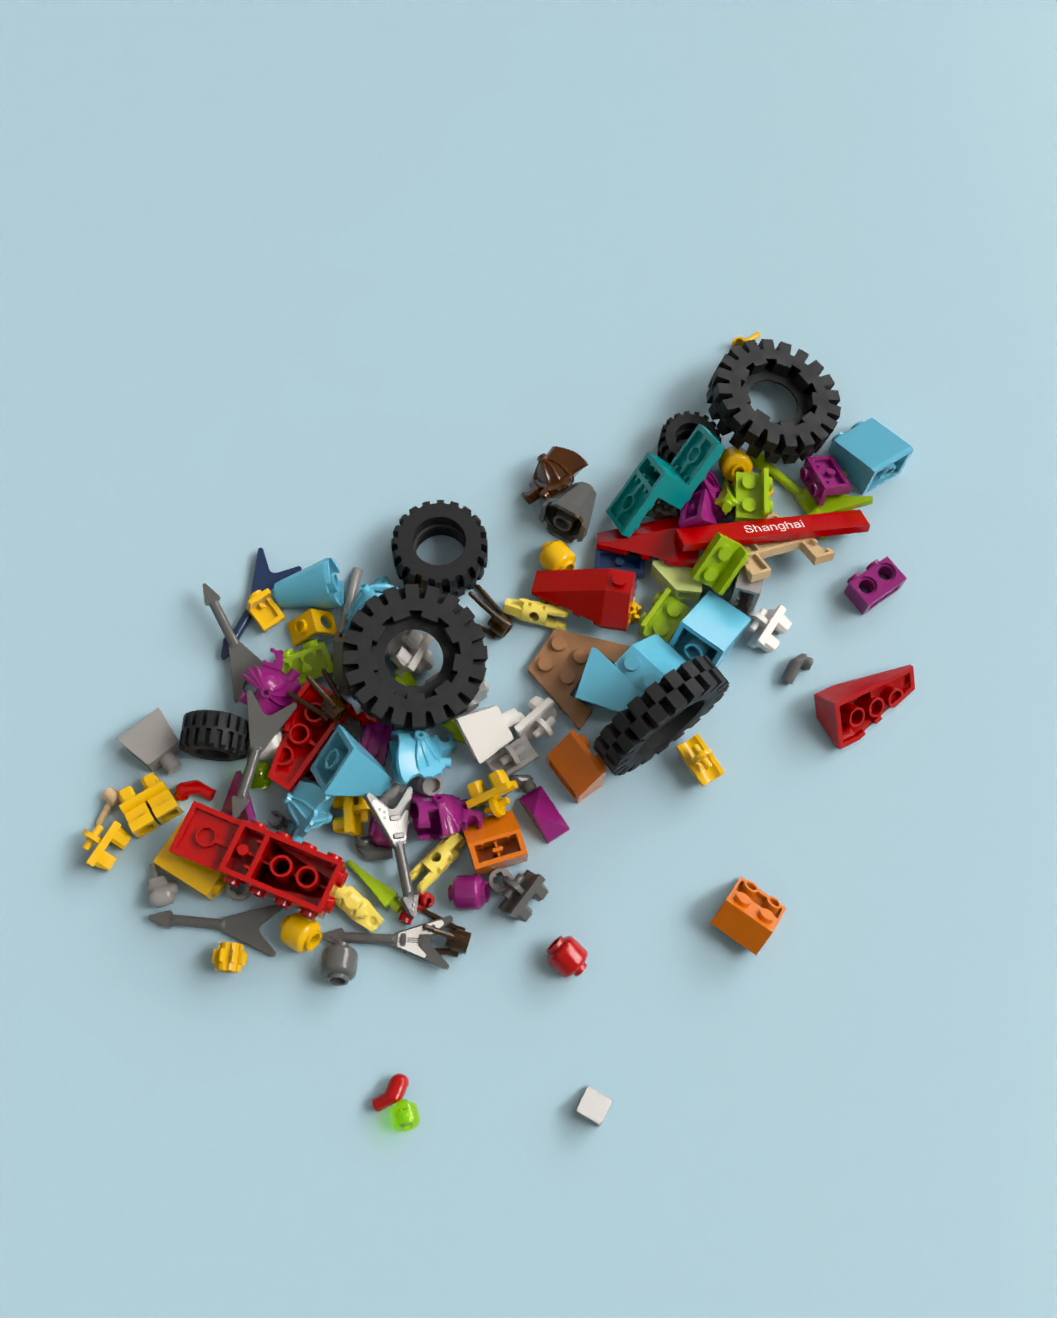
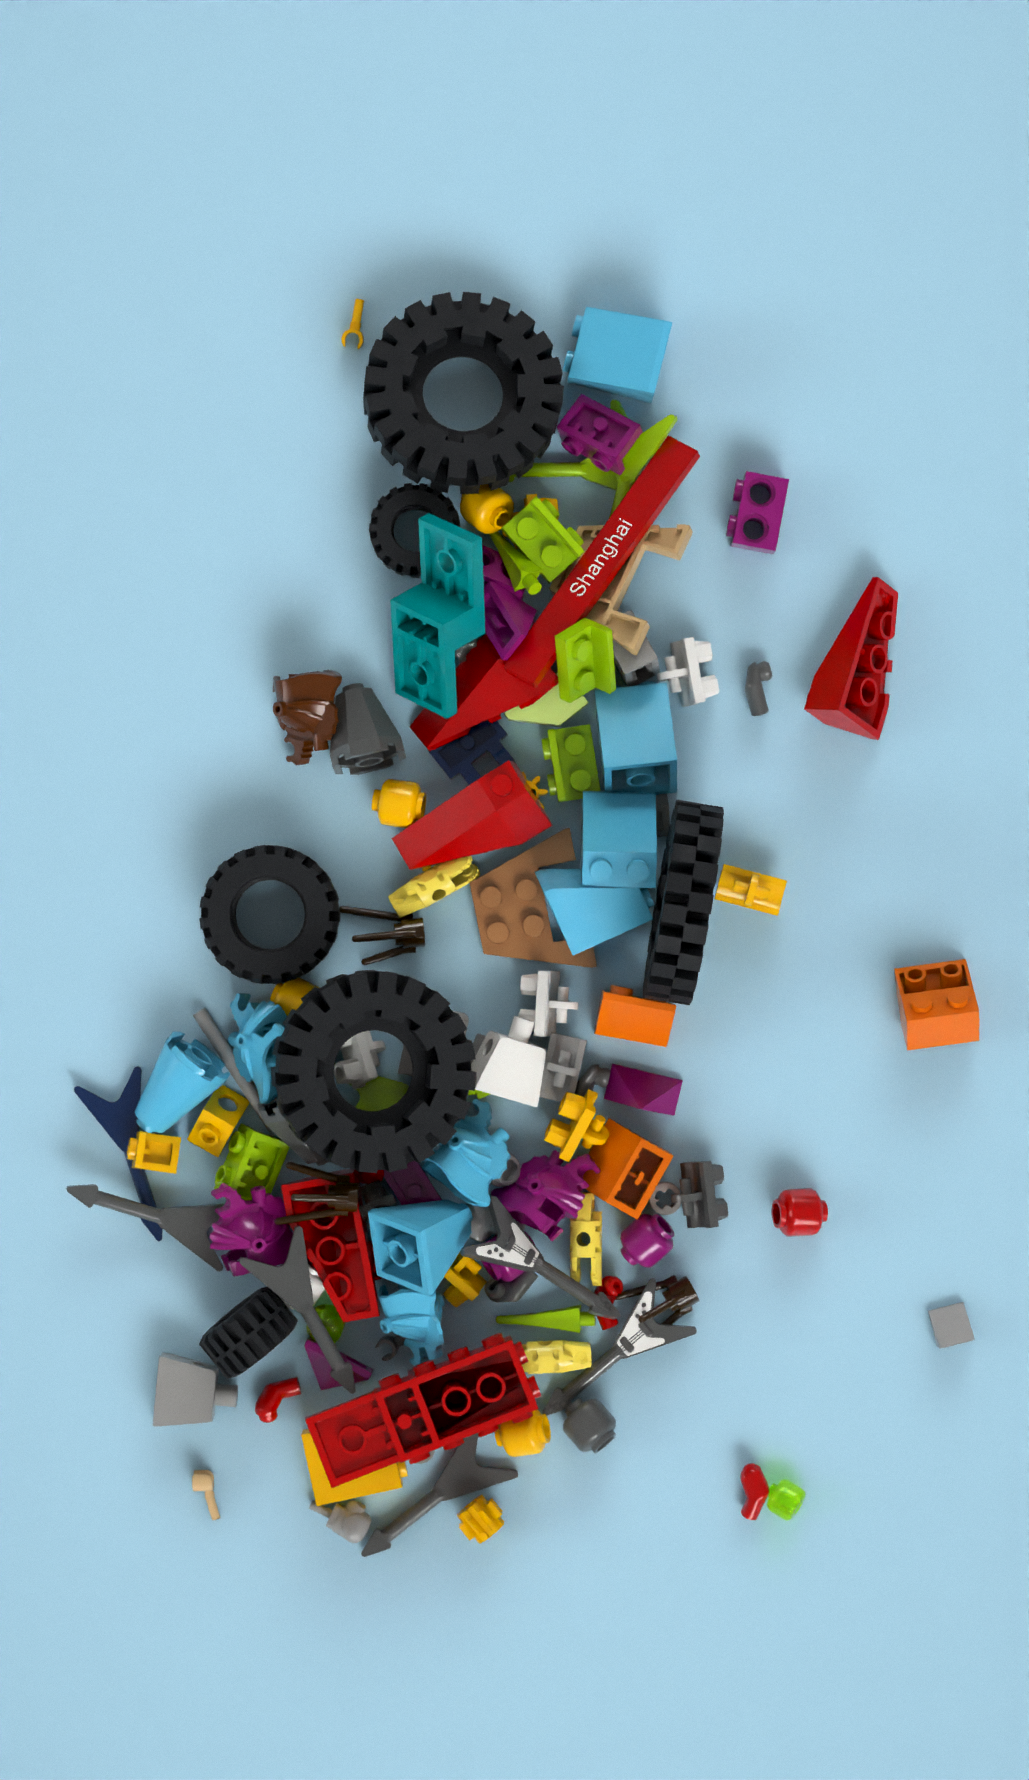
camera: 35 degrees left, 20 degrees up
(114, 835) = (252, 1547): yellow hips -> none
(137, 806) = (253, 1458): yellow hips -> none

